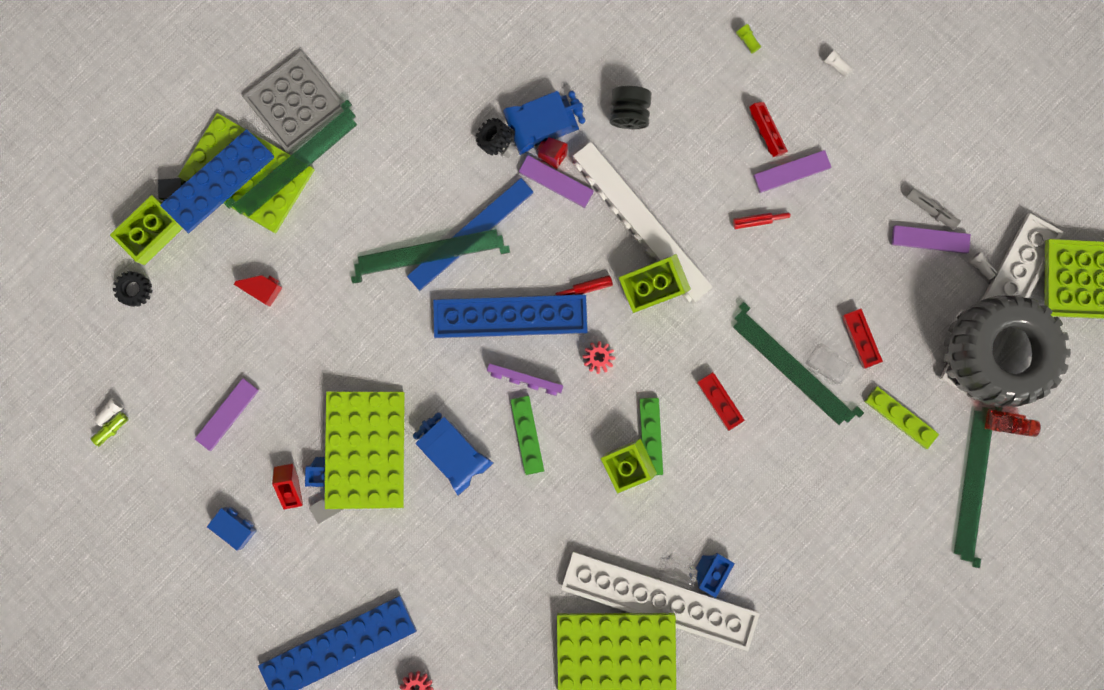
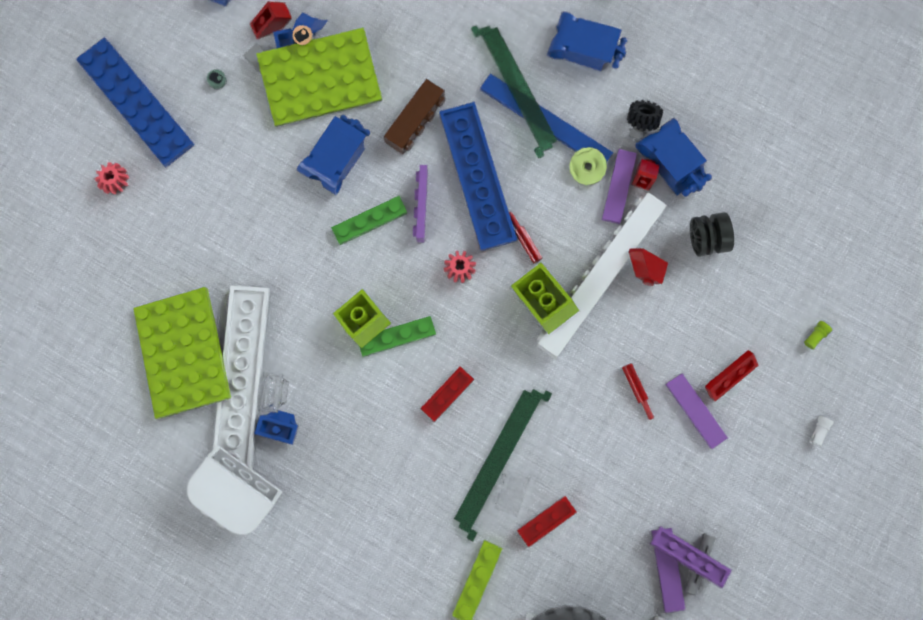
camera: 75 degrees right, 5 degrees down
(309, 448) = (311, 22): none -> blue slope
(320, 456) = (302, 35): none -> light nougat tile
(336, 557) = (216, 79): none -> sand green tile
(401, 171) = (587, 42): none -> blue piece
(432, 363) = (415, 116): none -> reddish brown brick
(538, 210) = (578, 163): none -> yellowish green plate
(647, 176) = (648, 266): none -> red slope
(771, 630) = (231, 492): none -> white brick
(926, 215) = (690, 557): none -> medium lavender tile

